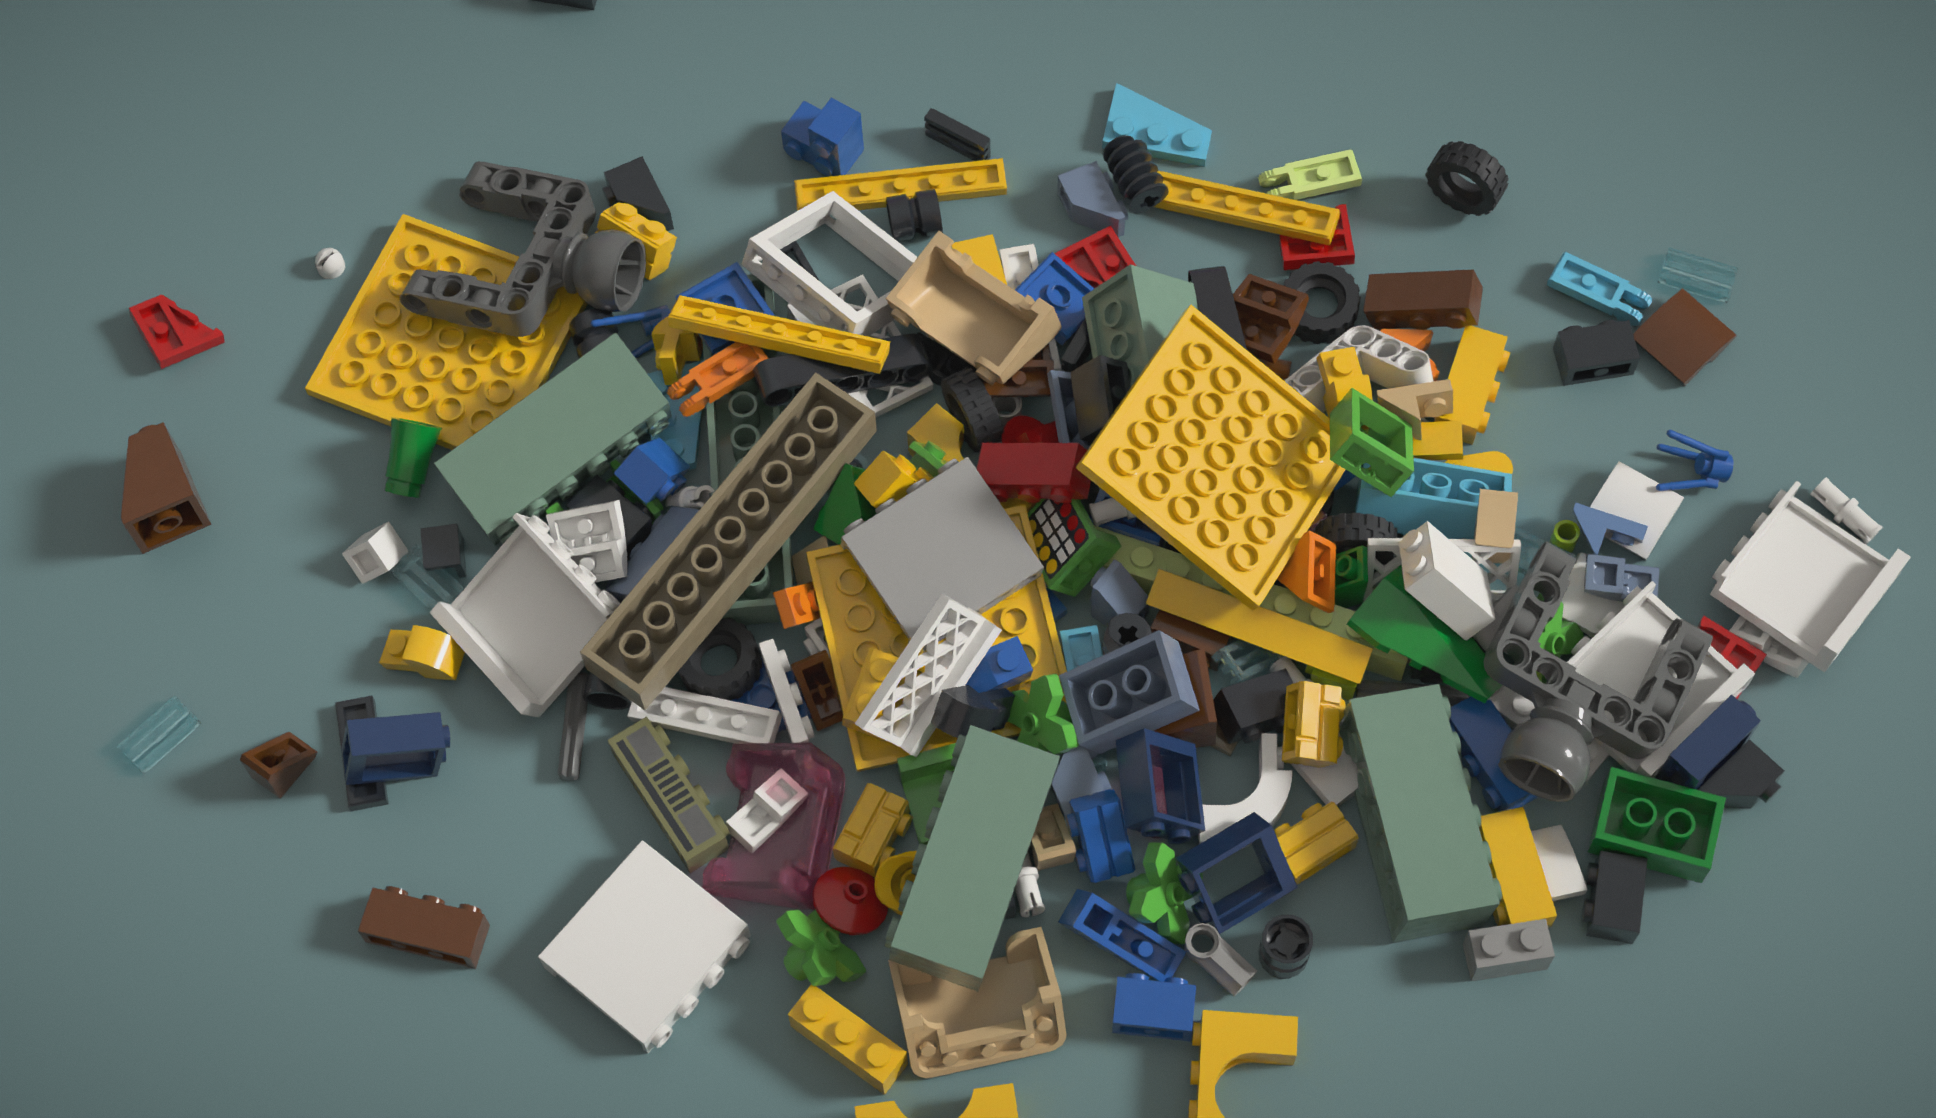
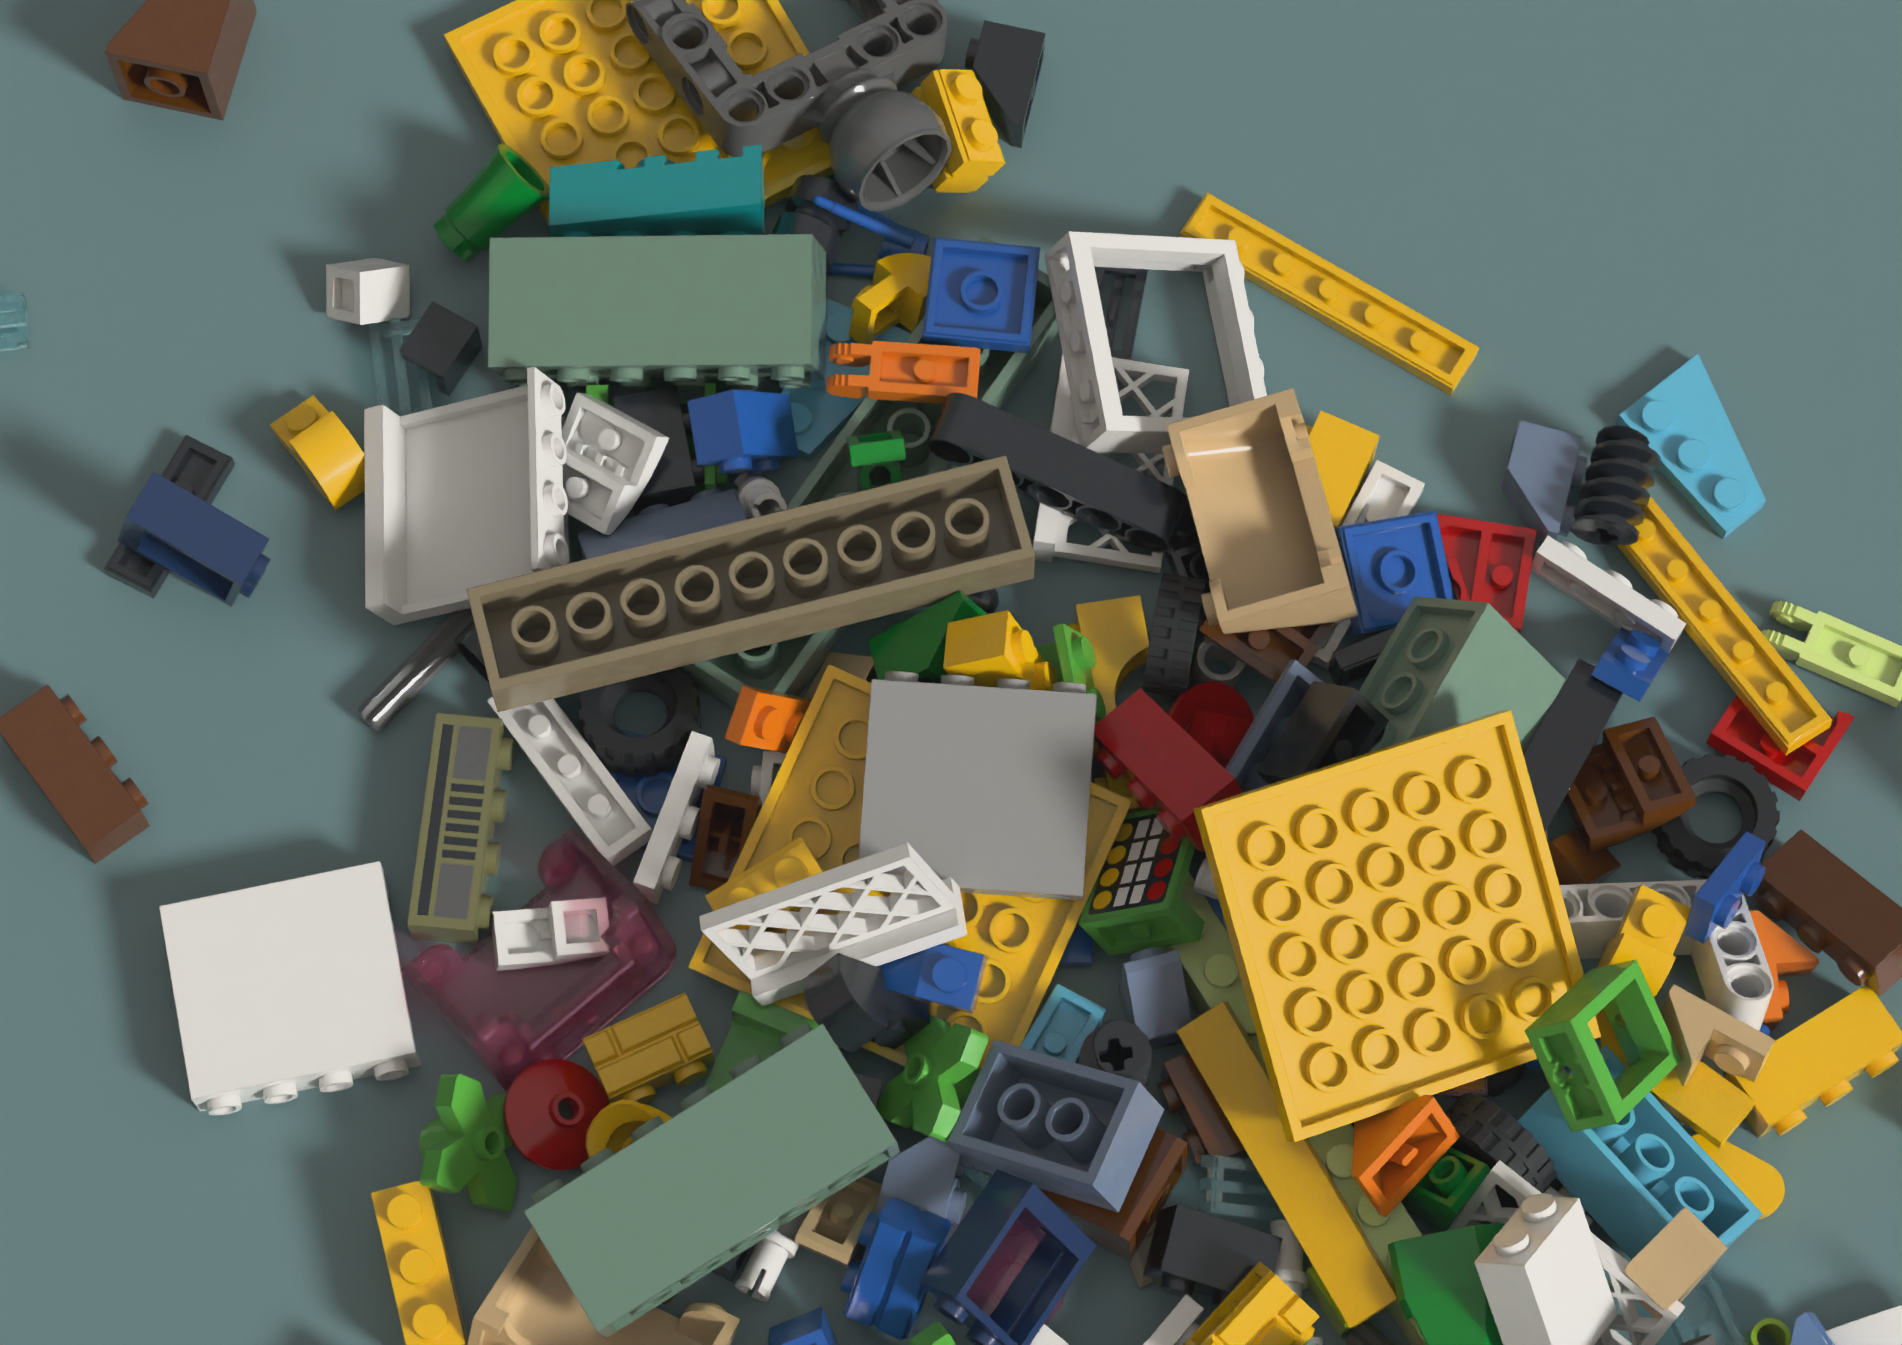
camera: 35 degrees right, 5 degrees up
(278, 762) = (70, 457): reddish brown slope -> none
(505, 380) = (660, 197): none -> teal wedge
(737, 425) = (876, 450): none -> green tile
(779, 334) = (1011, 375): yellow tile -> none
(825, 137) = (1282, 166): blue brick -> none
(914, 215) = (1309, 341): black wheel -> none
(957, 136) = (1445, 279): black tile -> none
(1174, 232) = (1605, 592): none -> white plate
(1215, 254) = (1631, 663): none -> blue plate
(1363, 334) = (1719, 896): none -> blue plate

